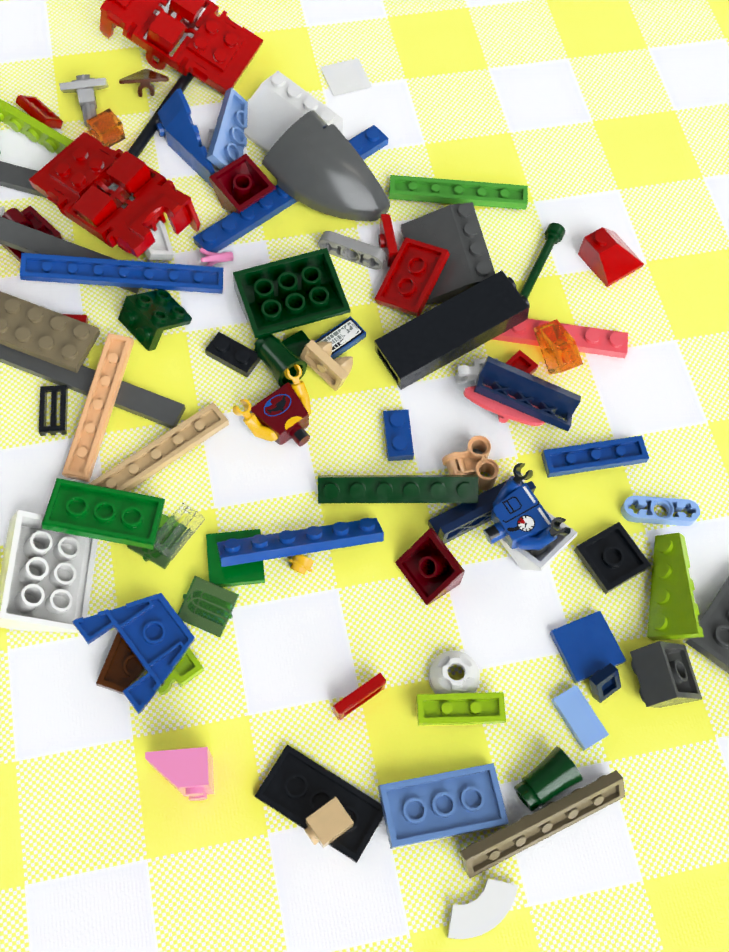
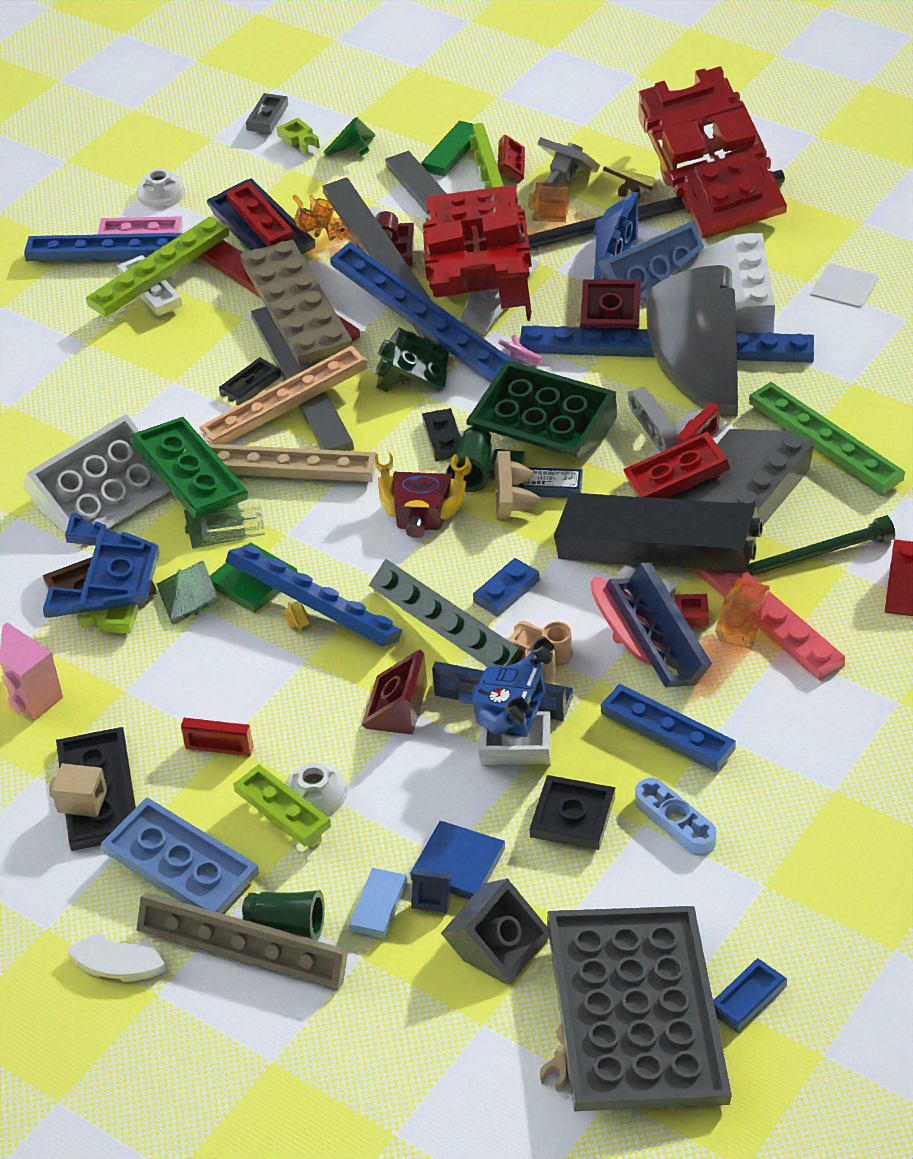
camera: 55 degrees right, 20 degrees down
(672, 601) = (550, 892): lime wing -> none

